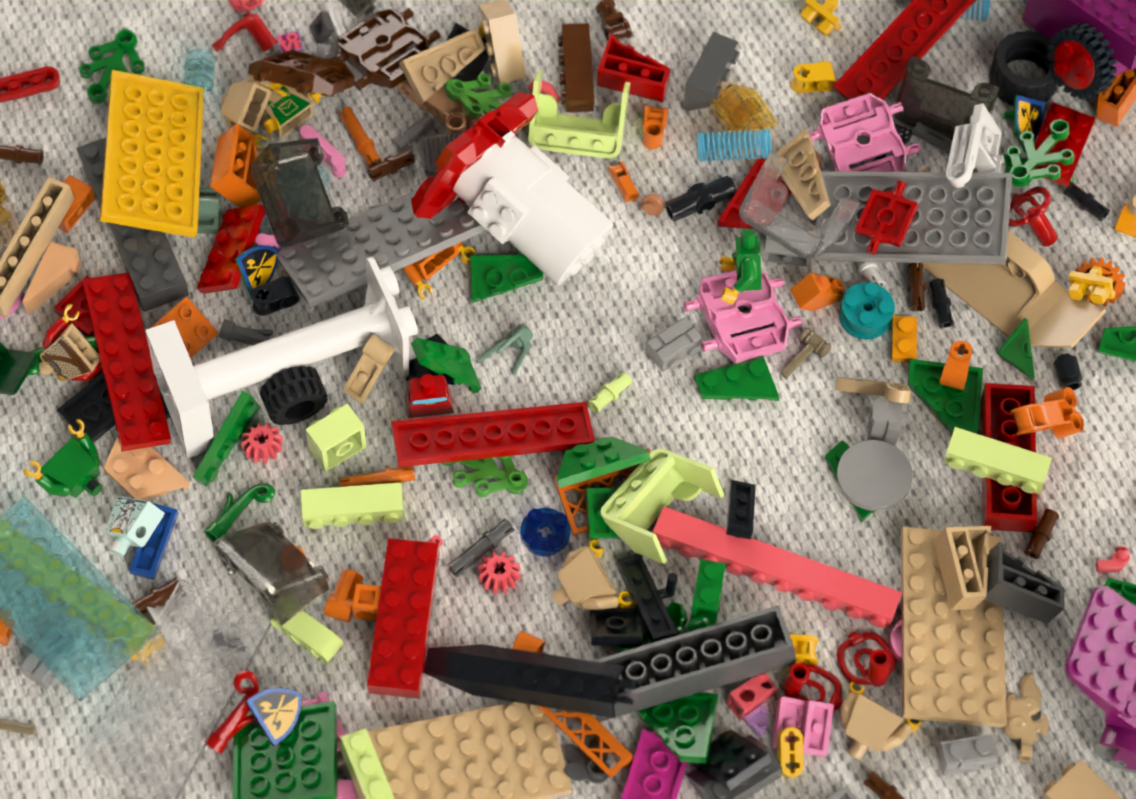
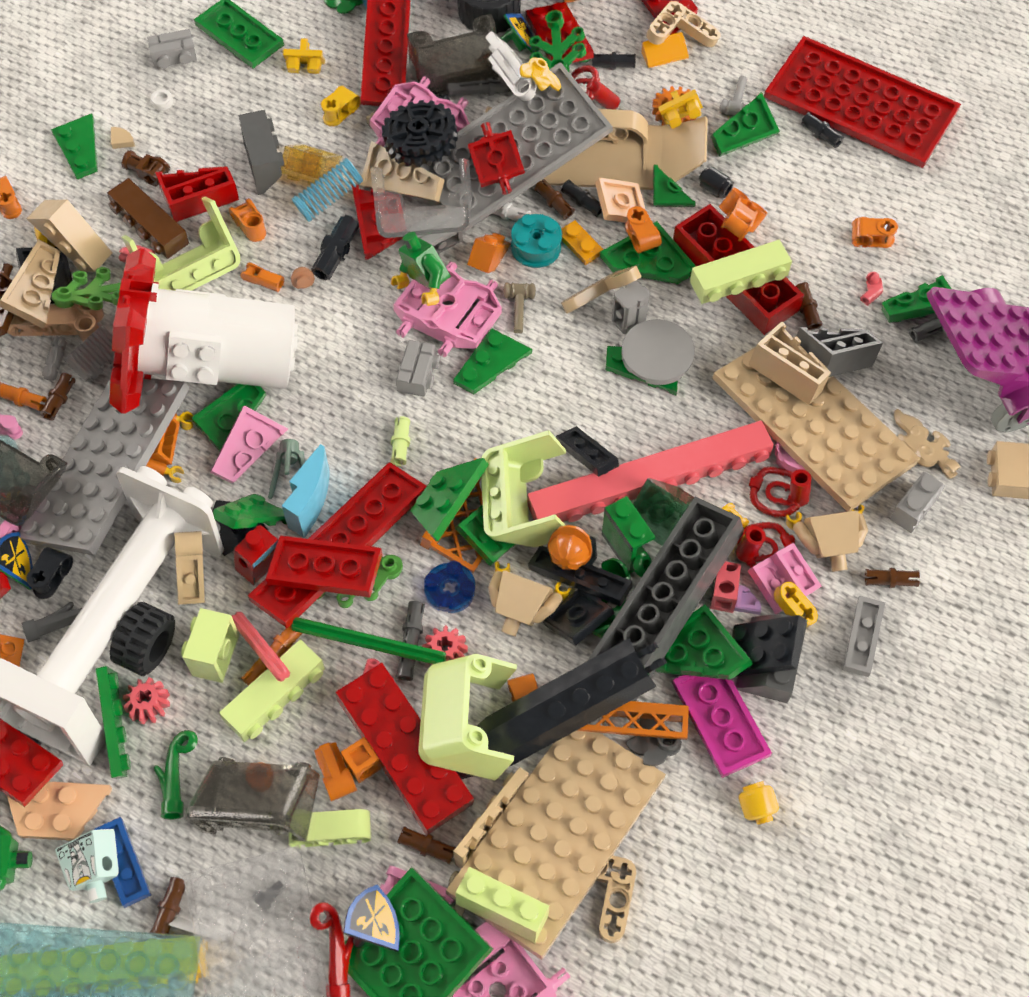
camera: 40 degrees left, 0 degrees up
(361, 698) = (426, 845): none -> reddish brown pin
(369, 465) = (260, 647): none -> coral axle
(412, 713) = (493, 811): none -> tan wing
(432, 630) = (445, 734): none -> yellowish green windscreen
(446, 523) = (368, 641): none -> green axle
(461, 442) = (324, 566): none -> red plate
(493, 306) = (245, 444): none -> bright pink wing
(504, 379) = (308, 493): none -> medium azure slope
(650, 570) = (570, 547): none -> orange piece
(756, 592) = (661, 507): none -> clear green slope
(843, 151) = (420, 133): none -> black piece
(968, 324) = (617, 198): none -> light nougat plate
(980, 172) = (540, 73): none -> yellow plate

